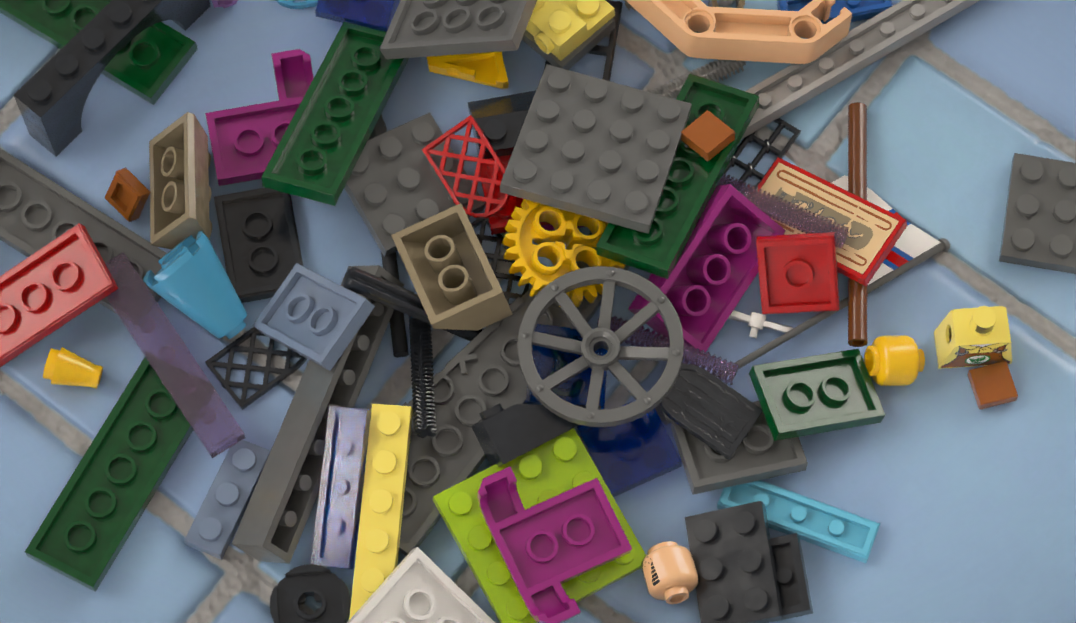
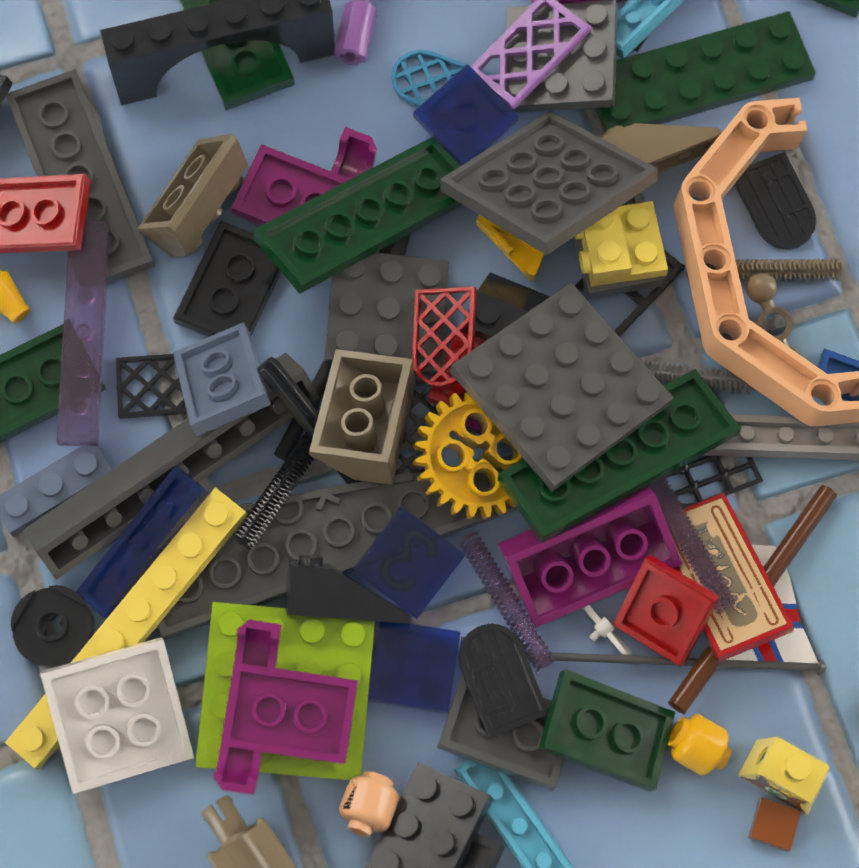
camera: 30 degrees right, 5 degrees up
(127, 194) = (150, 174): dark orange tile -> none
(199, 287) = (147, 291): dark azure cone -> none
(600, 338) = (438, 555): dark grey wheel -> none
(707, 135) = (667, 436): dark orange tile -> none

